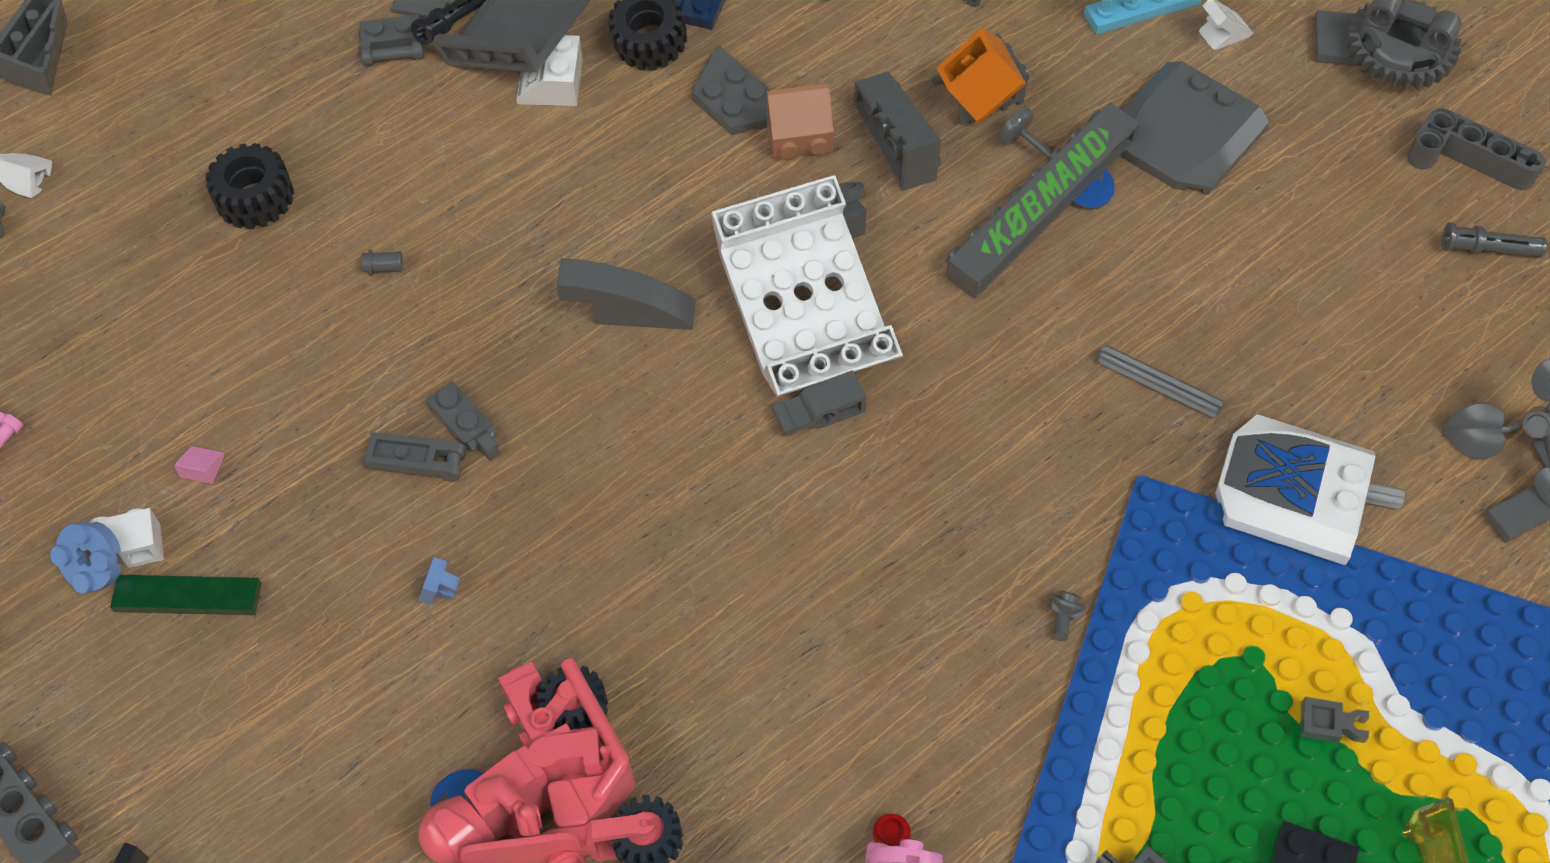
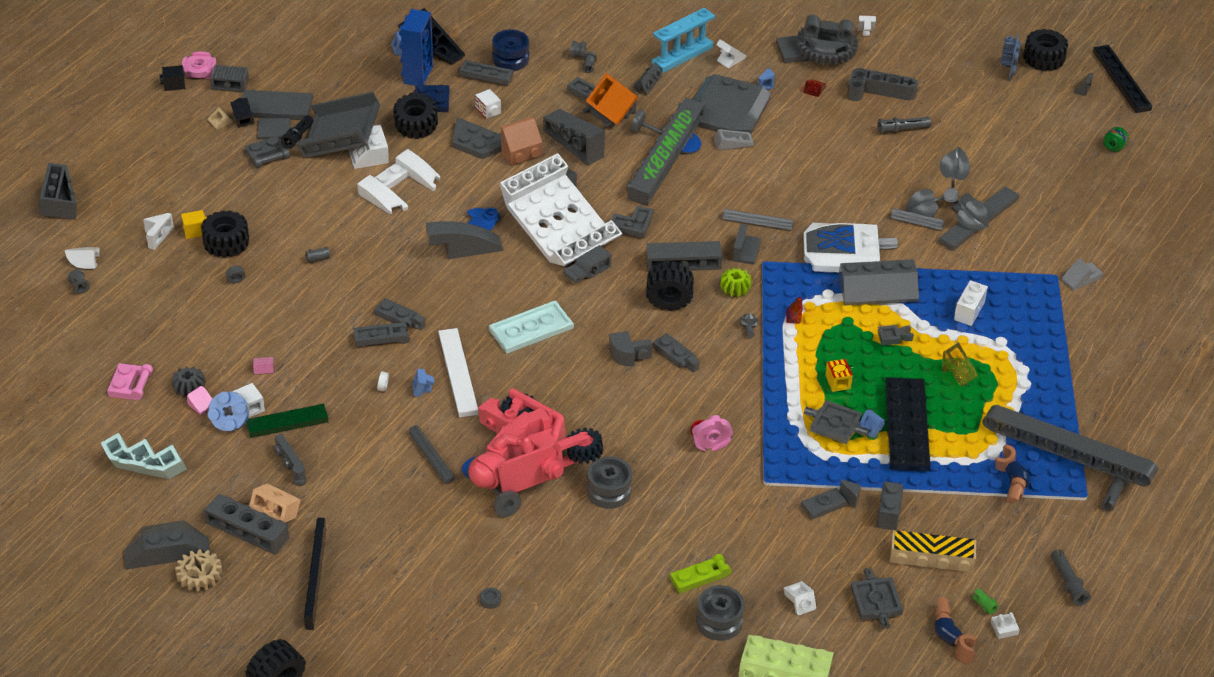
camera: 20 degrees left, 15 degrees down
(60, 469) = (187, 380): none -> dark grey gear
(64, 509) = (199, 400): none -> bright pink slope
(75, 781) = (275, 502): none -> light nougat brick
(148, 690) = (290, 459): none -> dark grey plate
(157, 149) = (157, 229): none -> white slope
(206, 147) = (192, 223): none -> yellow brick
(233, 269) = (235, 274): none -> dark grey tile
(374, 559) = (383, 381): none -> white tile
(393, 744) = (431, 454): none -> dark grey axle
(511, 574) = (458, 373): none -> white tile
(599, 120) = (378, 188): none -> white wedge
(676, 507) = (531, 326): none -> light aqua tile
(679, 258) = (484, 218): none -> blue plate
(778, 31) = (488, 104): none -> white brick
(818, 614) = (625, 351): none -> dark grey brick
(910, 637) = (676, 352): none -> dark grey hinge
(935, 339) = (635, 225): none -> dark grey plate
(942, 497) = (670, 286): none -> black tyre
(943, 35) = (580, 88): none -> dark grey plate
(997, 429) = (691, 254): none -> dark grey brick
(1067, 43) = (648, 79): none -> dark grey hinge
(1078, 523) = (735, 282): none -> lime gear
(1118, 435) = (745, 247): none -> dark grey panel
(1152, 199) = (732, 139): none -> light grey slope
(1156, 613) = (794, 312): none -> clear red slope
(1193, 790) = (838, 375): none -> yellow brick
(1271, 93) = (767, 79): none -> medium blue slope
(1339, 592) = (878, 282): none -> dark grey slope
(1352, 125) = (814, 87): none -> clear red slope
(1458, 456) = (917, 219): none -> dark grey axle
(1486, 19) = (866, 24): none -> white tile
(1505, 691) = (970, 303): none -> white brick

